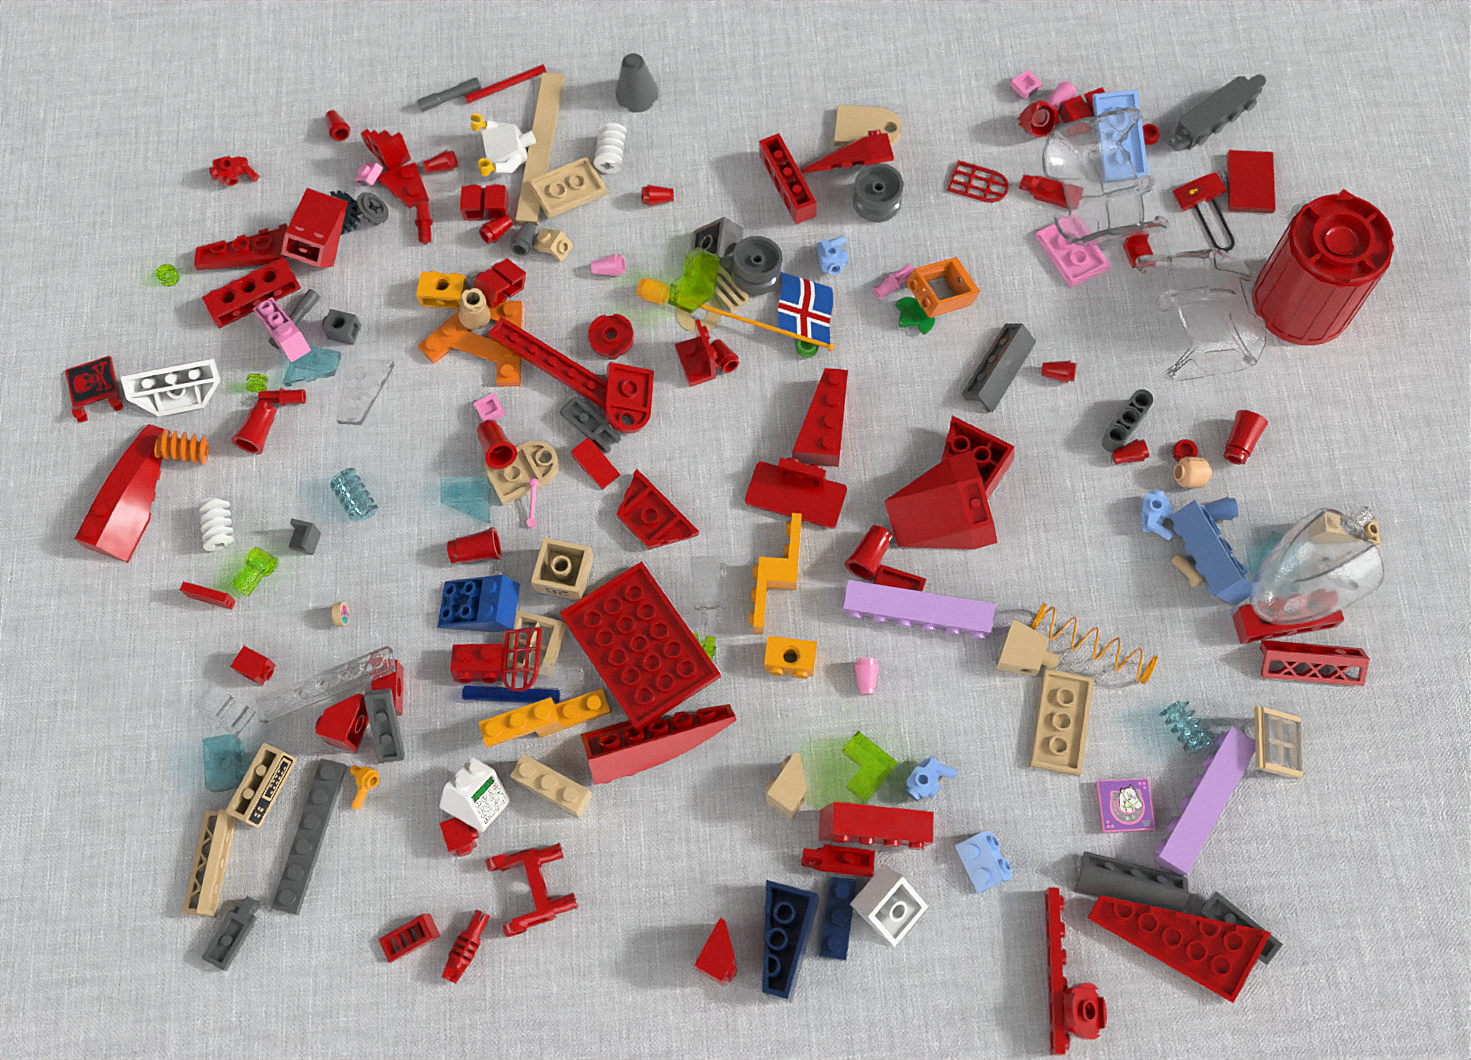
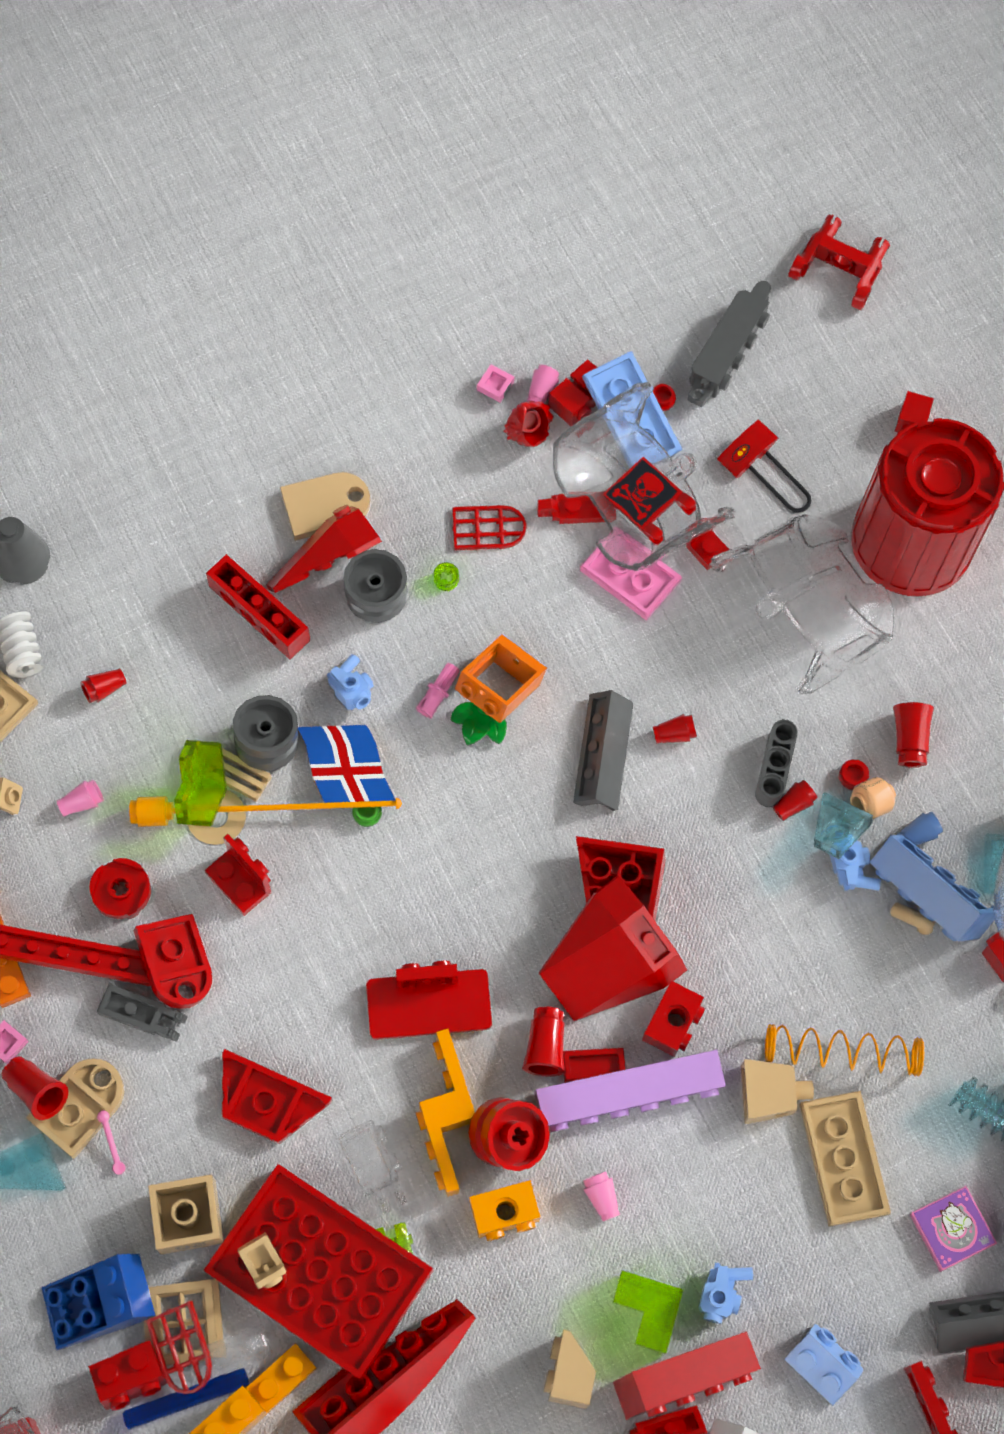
camera: 30 degrees left, 0 degrees up
(475, 547) = (63, 1229): red plant -> none
(594, 463) = (168, 1061): red slope -> none
(601, 620) = (262, 1261): none -> tan bracket
(718, 237) = (202, 717): flat silver slope -> none
(727, 359) = (277, 863): red cone -> none
(823, 425) = (430, 911): red wedge -> none
(829, 604) = (509, 1134): none -> red wheel
(937, 201) = (444, 584): none -> clear neon green bush
(978, 559) = (675, 1001): none -> red brick
(1105, 195) = (645, 495): none -> flag
(1157, 481) = (839, 825): none -> clear light blue wing
(1250, 181) = (799, 414): red tile -> none
(1321, 69) = (847, 258): none -> red connector

